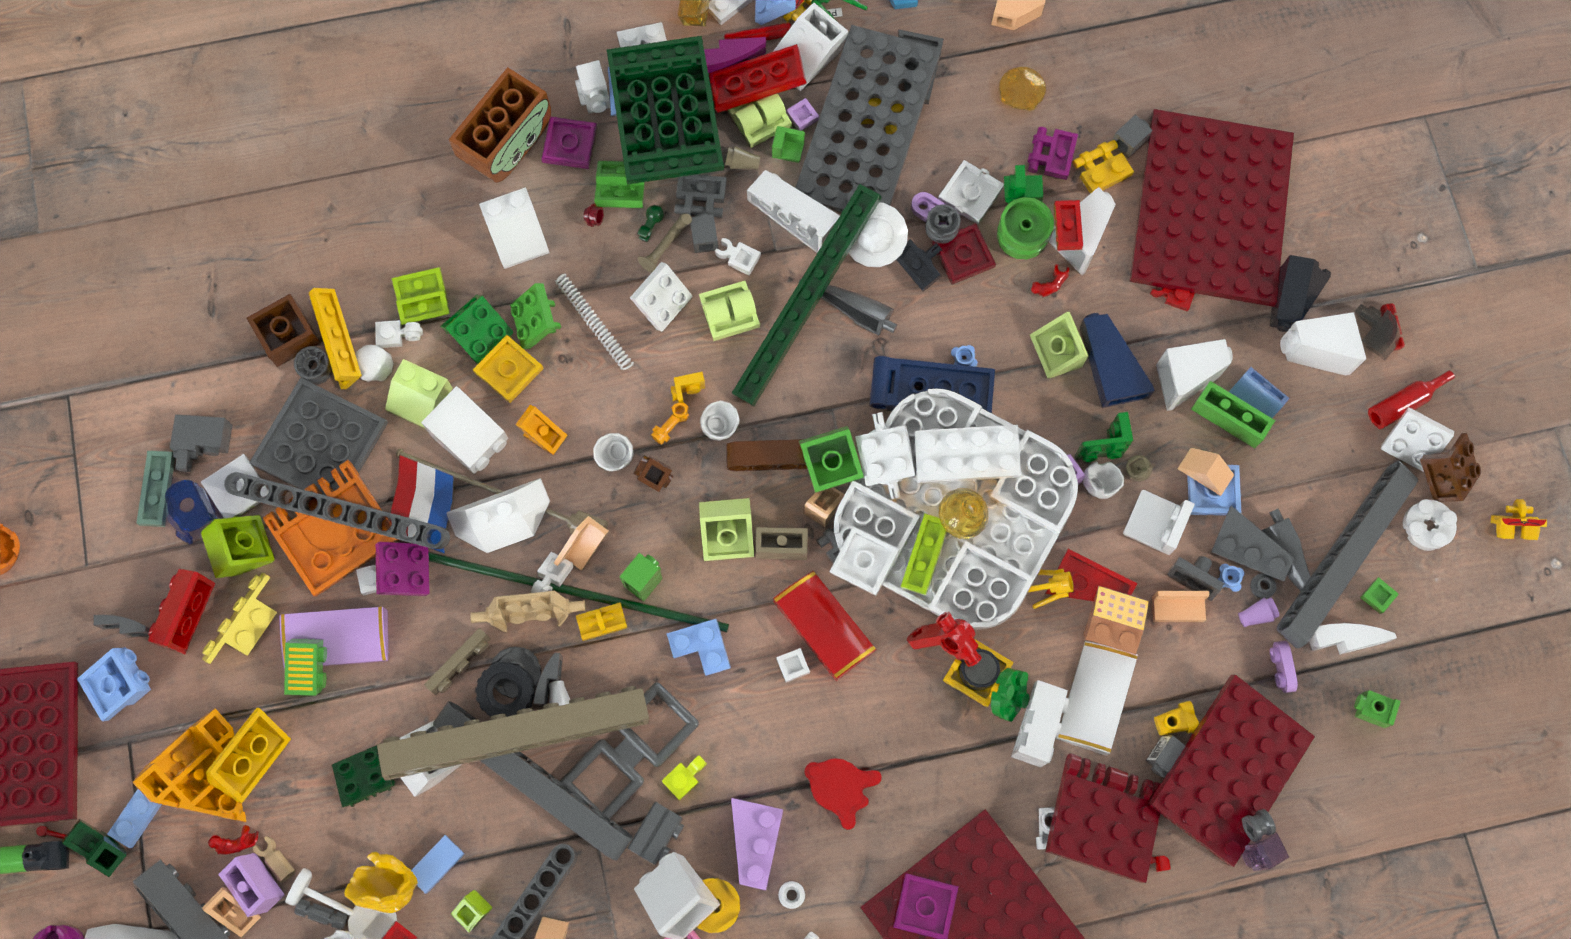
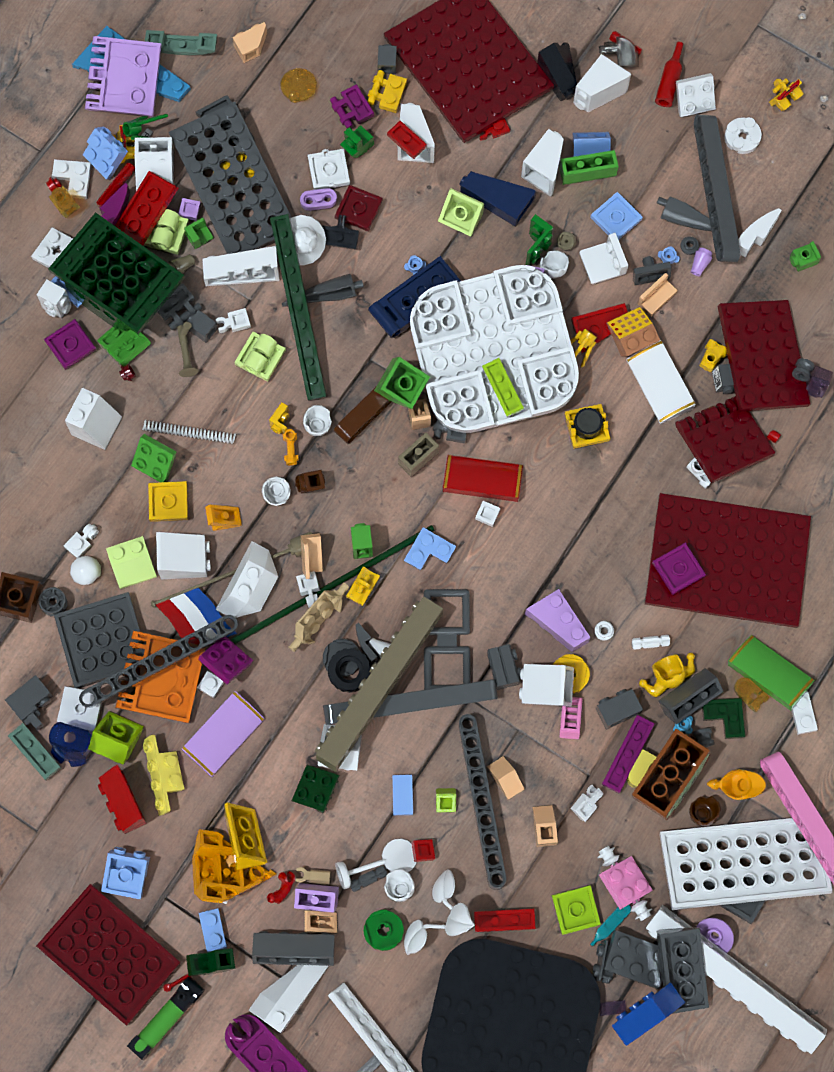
camera: 45 degrees left, 0 degrees up
(126, 626) = (102, 835): dark grey slope -> none
(304, 666) = (225, 762): bright green brick -> none
(335, 336) = (51, 574): yellow fence -> none
(382, 886) = (387, 830): yellow hair -> none
(421, 296) = (74, 508): lime slope -> none
(458, 662) = (306, 681): dark tan plate -> none
(477, 328) = (125, 495): green bracket -> none
(502, 126) = (27, 366): dark orange brick -> none
(654, 215) = (162, 341): dark green arm -> none
(661, 296) = (215, 382): white plate -> none
(682, 779) = (488, 627): neon yellow plate -> none
(726, 529) = (380, 475): yellowish green slope -> none
(840, 787) = (574, 553): red tile -> none
(864, 561) = (474, 420): white plate -> none
(886, 455) = (431, 354): white plate -> none
(942, 233) = (332, 208): dark grey wheel -> none
(953, 635) = (558, 415): red piece -> none
(958, 518) = (503, 345): clear yellow piece -> none
(967, 453) = (474, 312): white plate -> none
(1011, 694) = (617, 420): green plate -> none
(1025, 228) = (379, 163): bright green wheel -> none
(1040, 724) = (646, 423): white wedge -> none
(1049, 288) = (423, 186): red piece -> none
(1207, 469) = (603, 209): light nougat slope -> none
(1251, 547) = (662, 230): dark grey wing -> none
(1286, 675) = (735, 274): lavender plate -> none
(1379, 595) = (752, 196): bright green plate -> none
(1452, 473) = (729, 97): reddish brown bracket -> none

